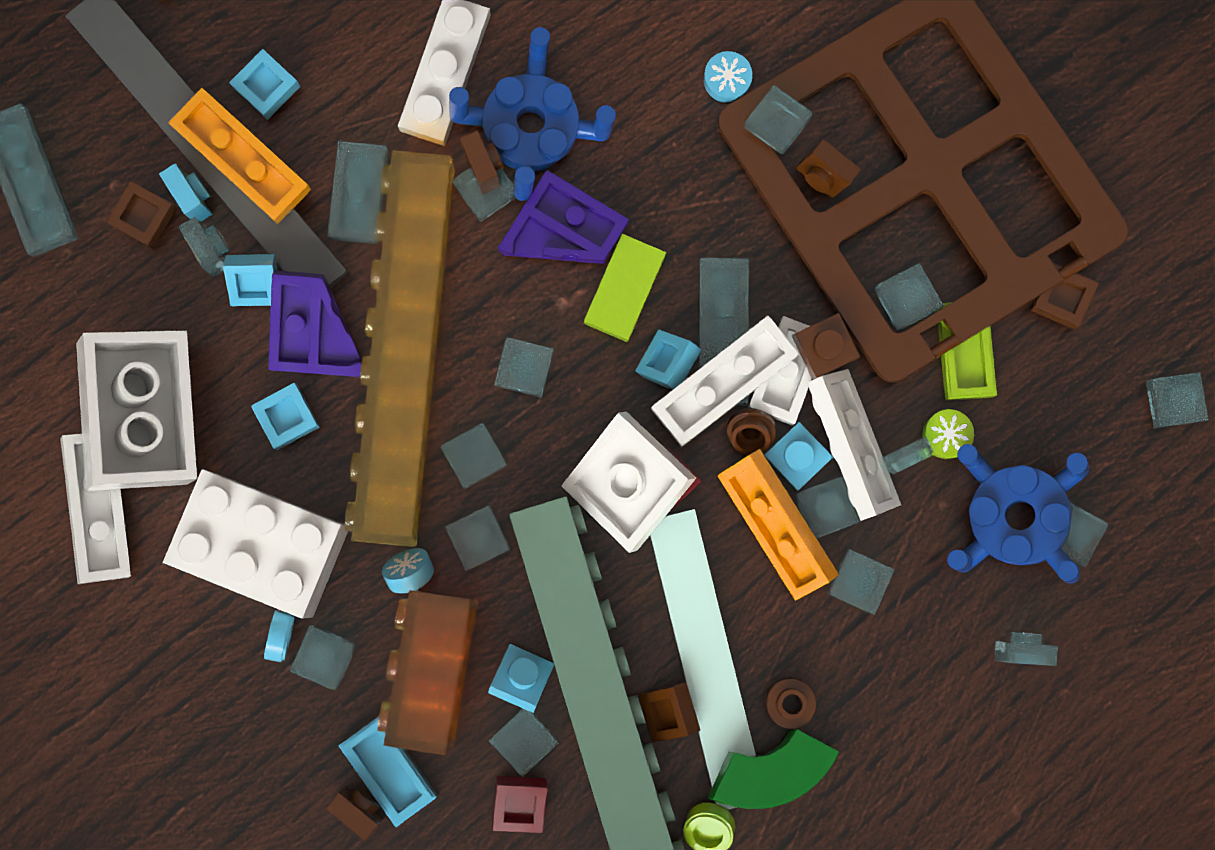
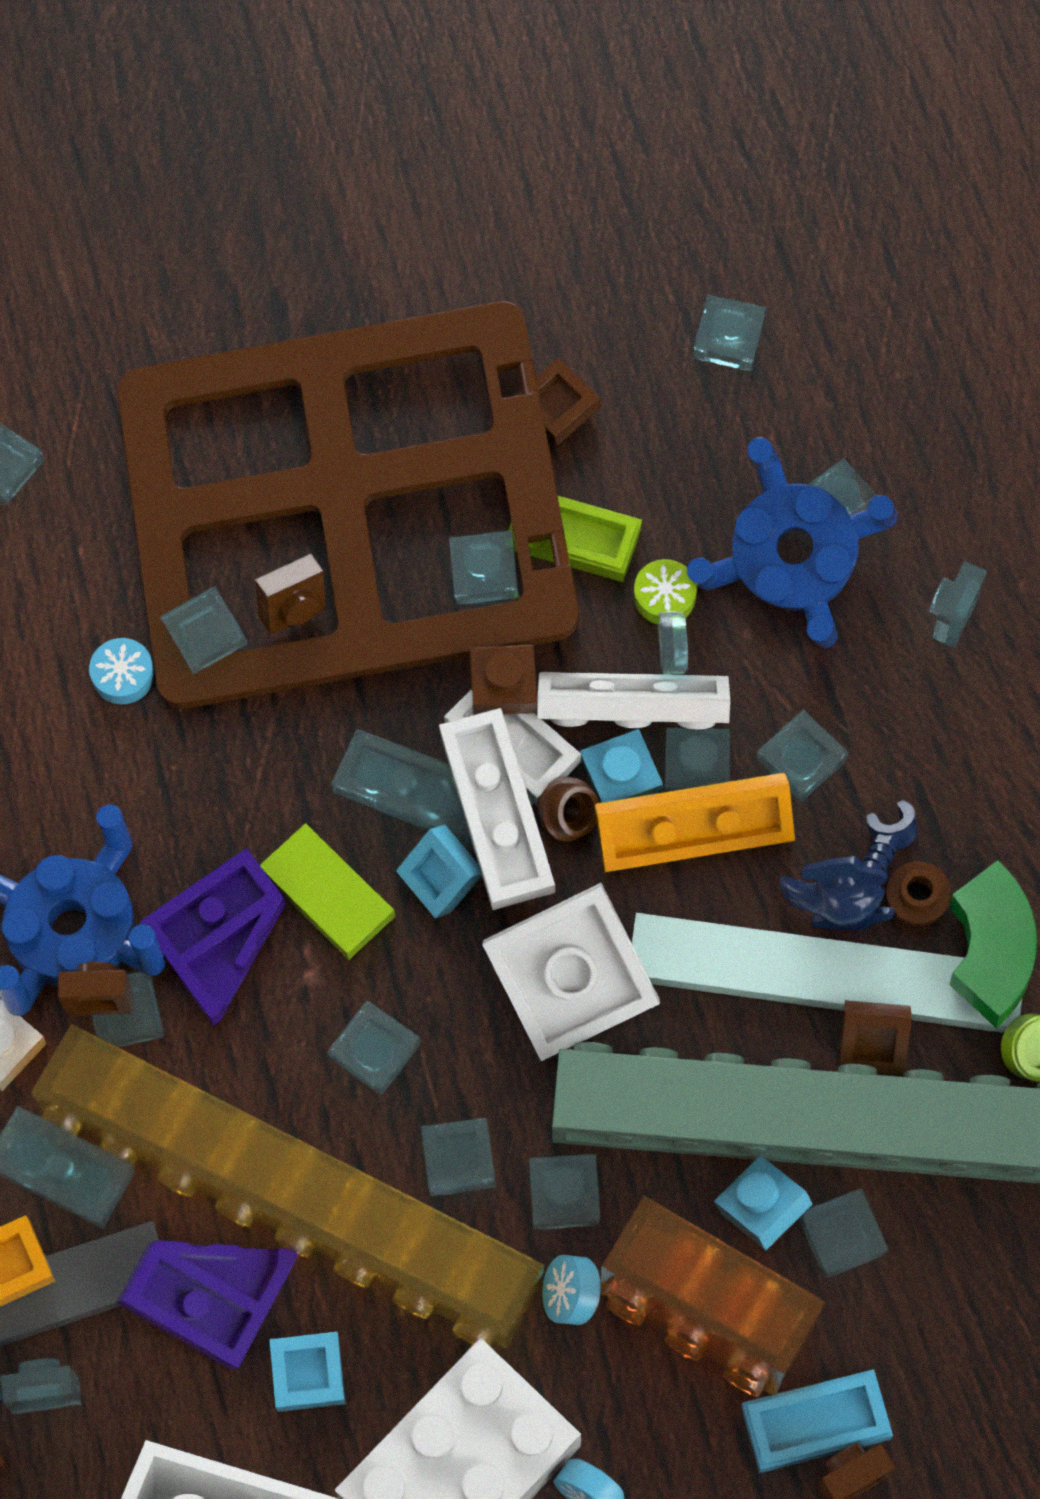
camera: 65 degrees left, 15 degrees down
(249, 278) = (112, 1344): medium azure plate -> none
(323, 657) = (638, 1448): clear light blue plate -> none
(519, 804) = (921, 1265): plate -> none
(768, 659) = (848, 889): none -> dark blue piece

